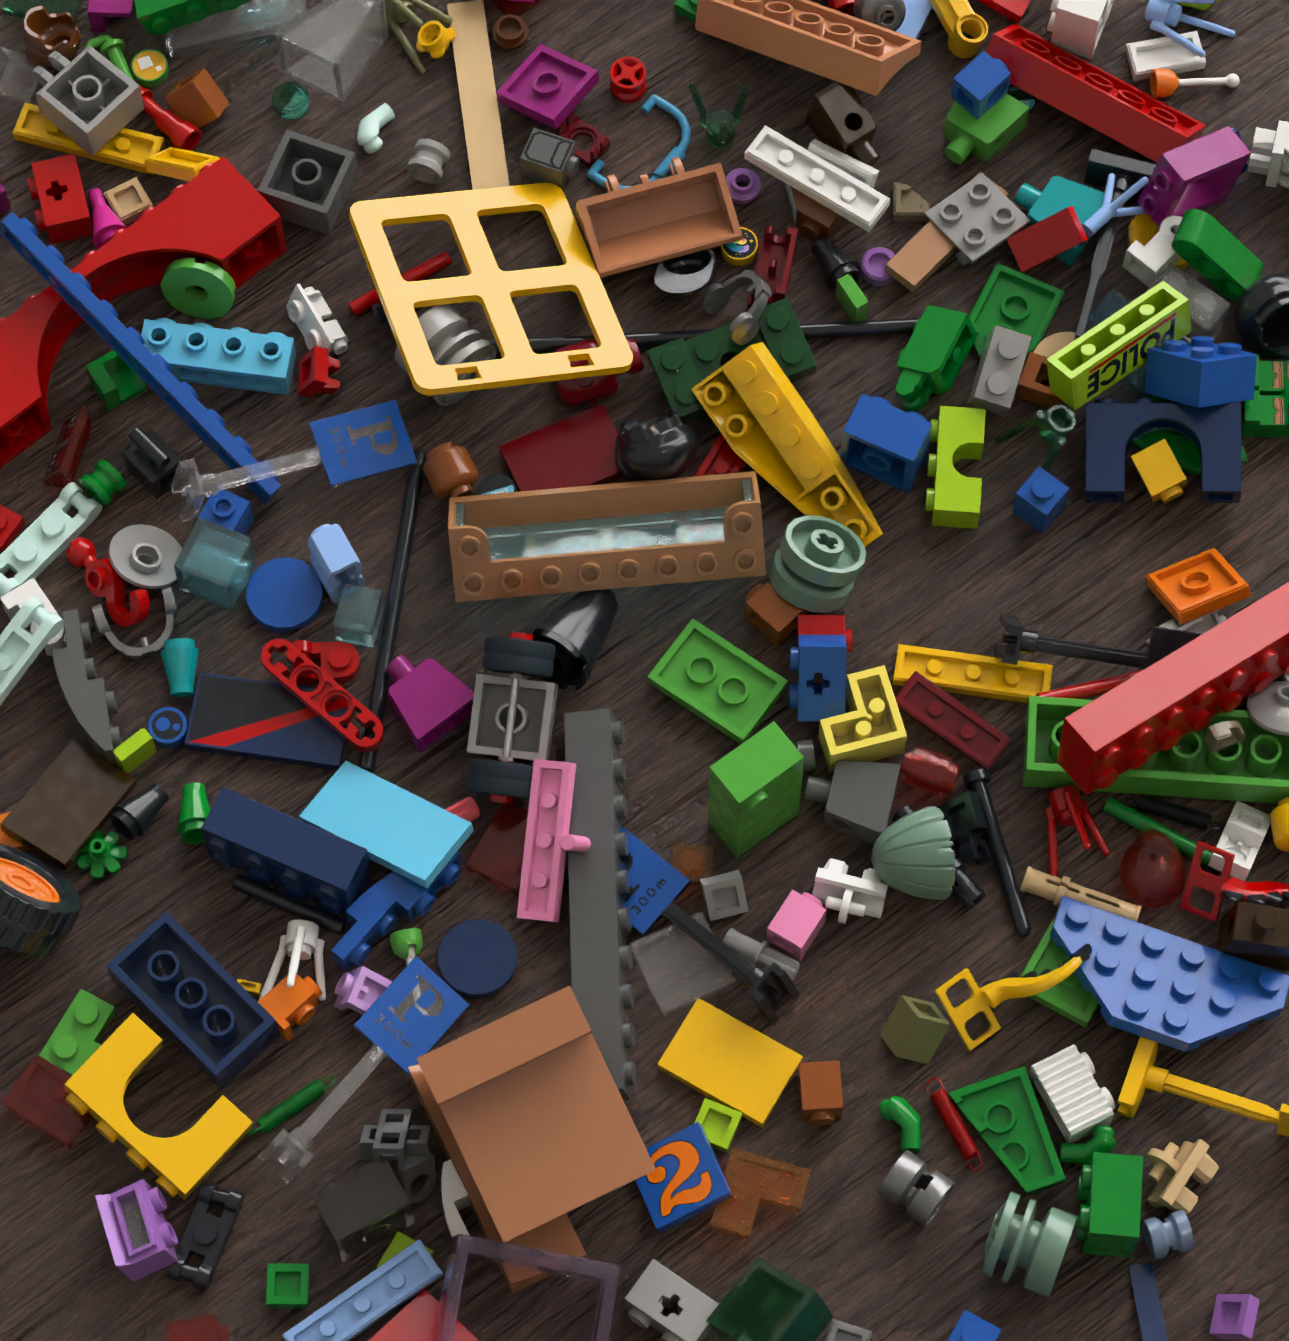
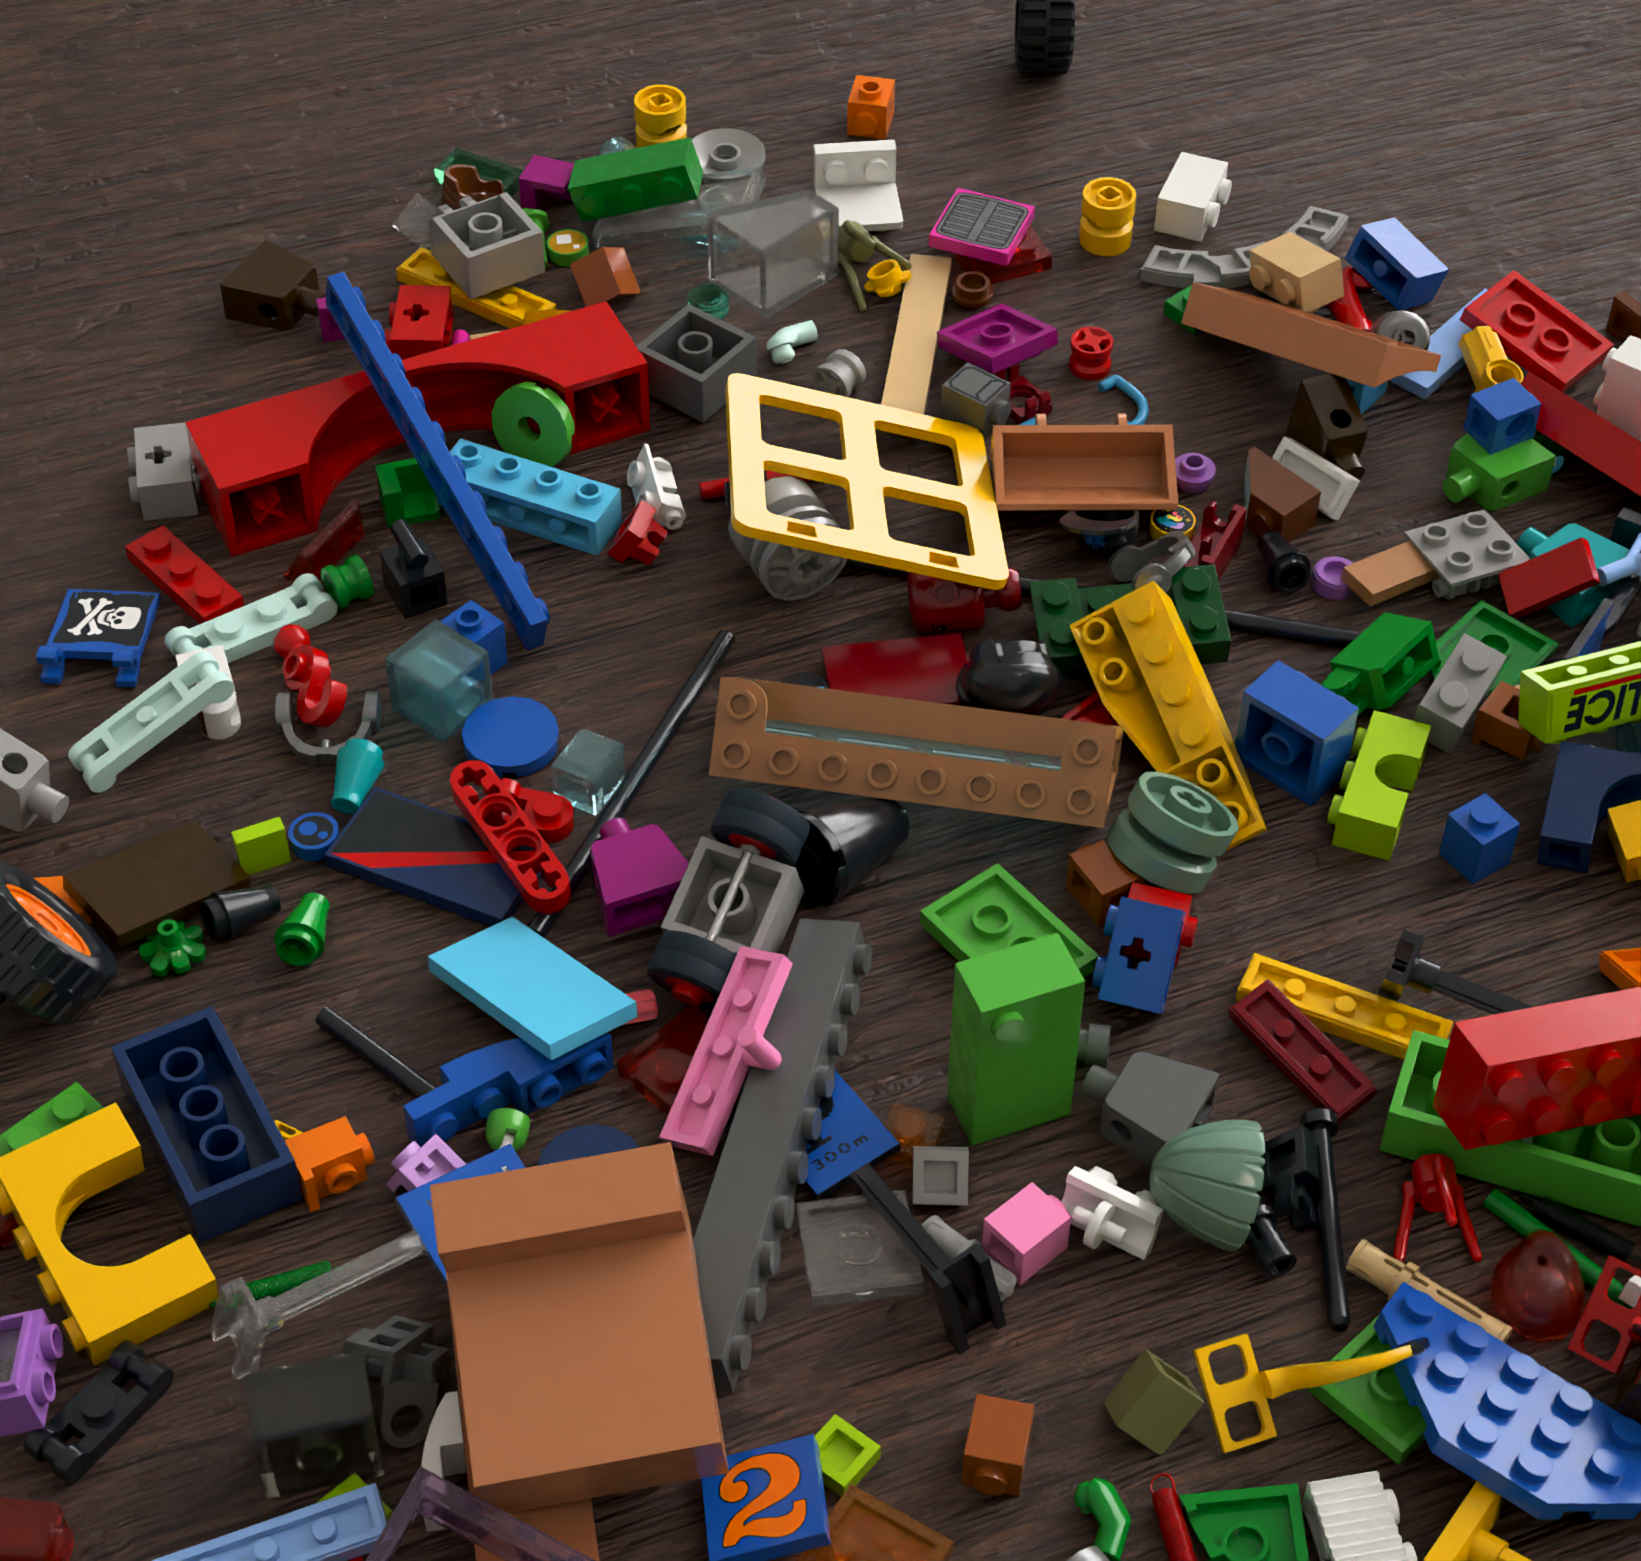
camera: 15 degrees right, 20 degrees down
(84, 693) = (231, 767): dark grey slope -> none
(144, 556) = (357, 656): light grey dish -> none
(181, 134) = (564, 288): red piece -> none
(286, 852) = (390, 981): dark blue brick -> none
(288, 1285) = (178, 1502): green plate -> none
(299, 944) = (371, 1099): white plant -> none
(334, 560) = (578, 695): light blue brick -> none
(346, 445) = (634, 598): piece -> none
(450, 471) = (754, 651): dark orange head -> none
(720, 123) = (1184, 408): clear green plant -> none
(730, 1062) = (884, 1381): yellow tile -> none
(817, 178) = (1283, 467): white tile -> none
(851, 298) = (1293, 593): bright green tile -> none
(871, 728) = (1192, 1021): light yellow brick -> none
(908, 204) = (1385, 528): dark tan tile -> none
(930, 771) = (1258, 1097): clear red brick -> none
(1052, 427) = (1514, 755): clear green plant -> none

